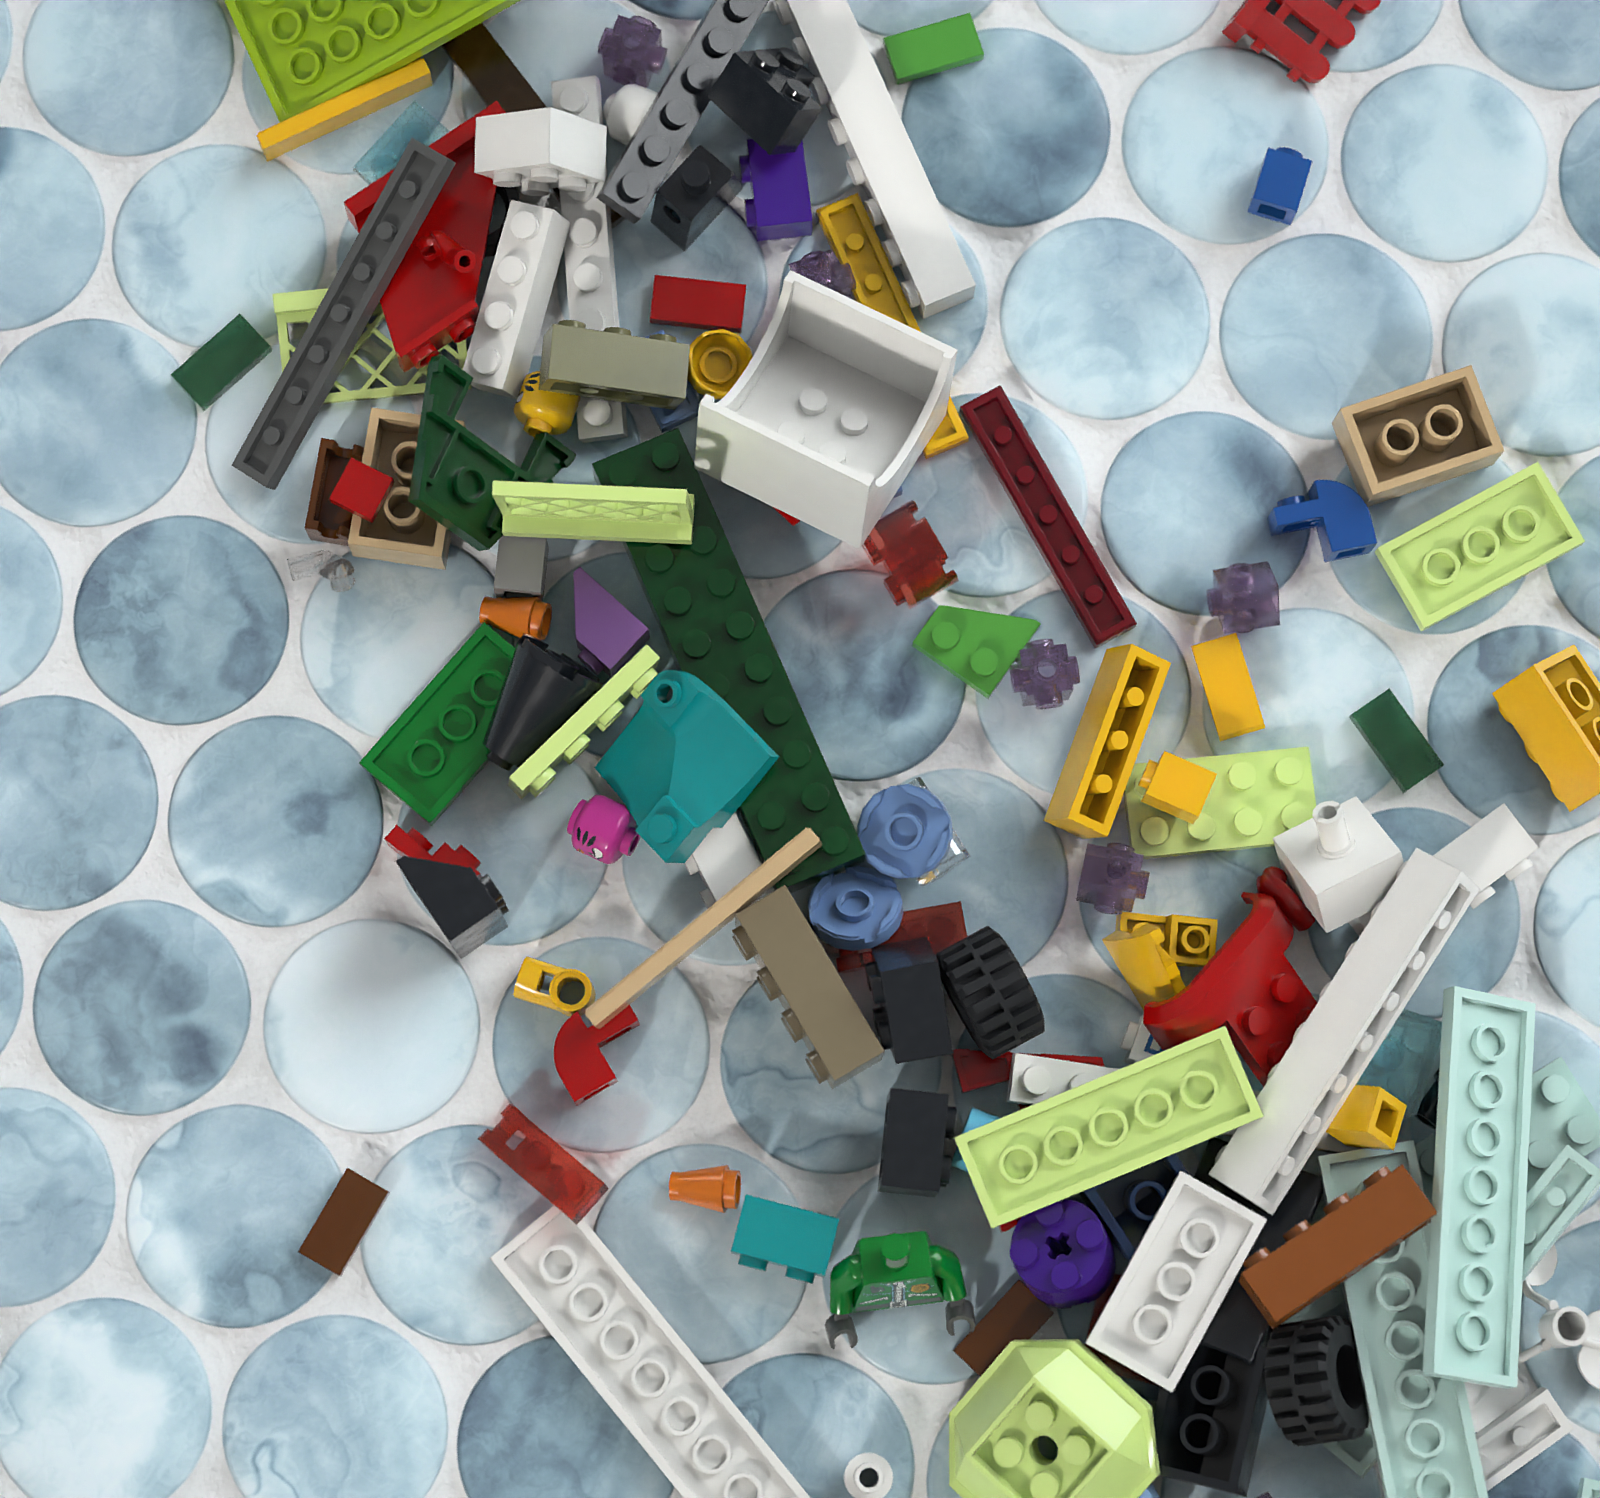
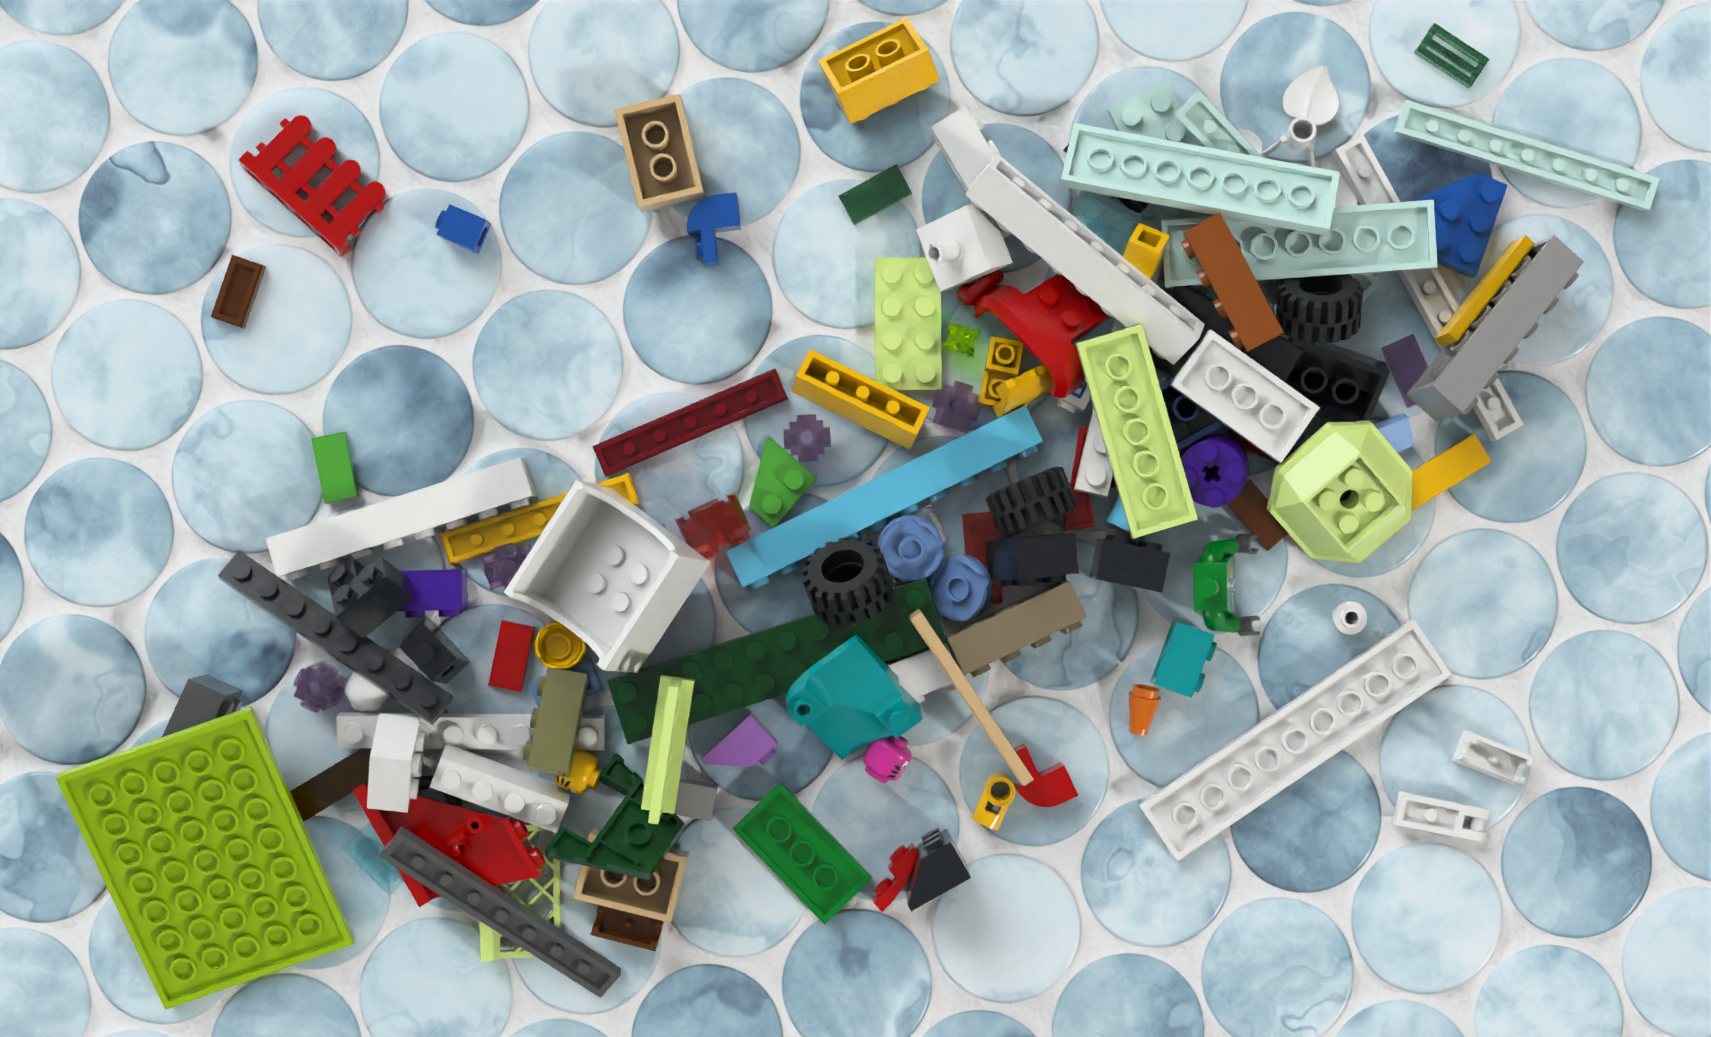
camera: 80 degrees left, 10 degrees up
(221, 362) = (523, 999): clear green tile -> none
(327, 565) = (679, 935): clear arm -> none
(344, 109) = (344, 898): yellow tile -> none
(344, 1222) = (1140, 958): reddish brown tile -> none
(361, 490) = (634, 910): red tile -> none
(517, 615) = (729, 803): orange cone -> none
(535, 701) = (796, 798): black cone -> none
(544, 1165) = (1117, 818): clear red plate -> none
(598, 712) = (823, 775): yellowish green plate -> none
(850, 741) = (847, 581): none -> black tyre
(973, 791) = (885, 496): none -> medium azure brick
(1176, 786) = (898, 355): yellow brick -> none
(1211, 877) = (960, 340): none -> clear neon green wheel
(1228, 687) = (827, 309): yellow slope -> none
(1244, 597) = (765, 290): clear purple brick -> none
(1479, 546) = (742, 118): yellowish green plate -> none

